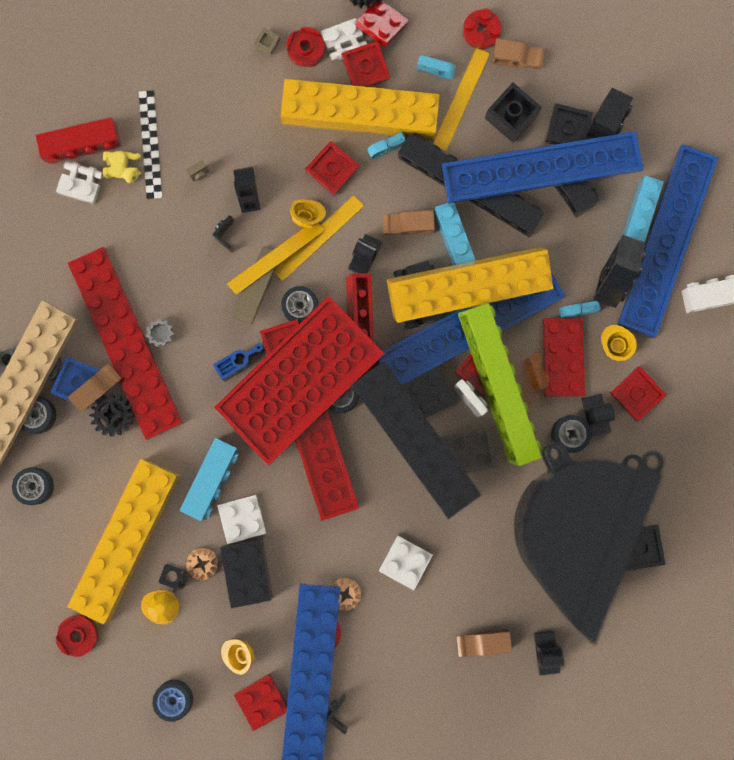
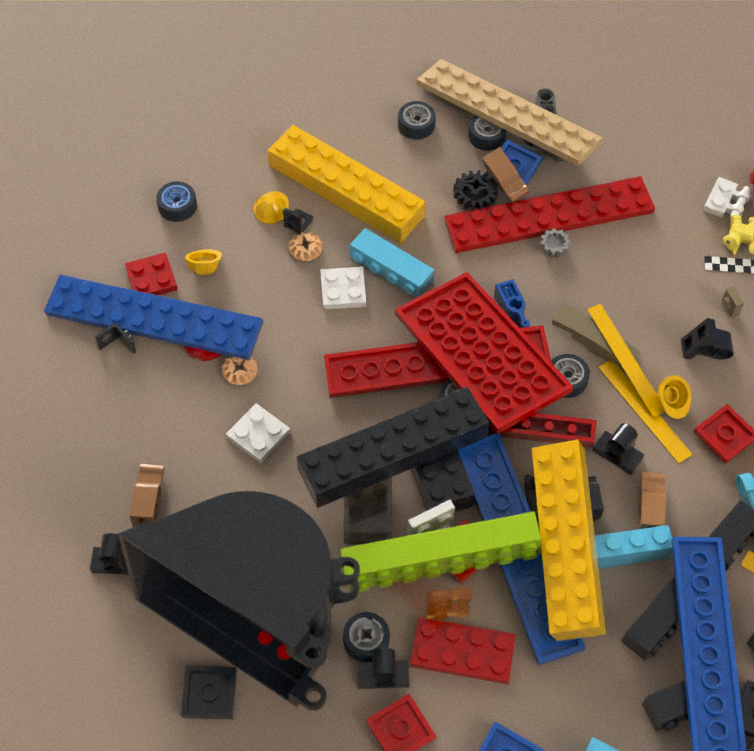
camera: 100 degrees right, 25 degrees down
(66, 630) = (259, 125): red plate -> none
(220, 228) = (661, 312): black bracket -> none
(246, 573) = (286, 280): black brick -> none
(580, 309) = (520, 679): medium azure piece -> none
(618, 343) = (469, 712): yellow piece -> none
(620, 271) = (562, 718): black brick -> none

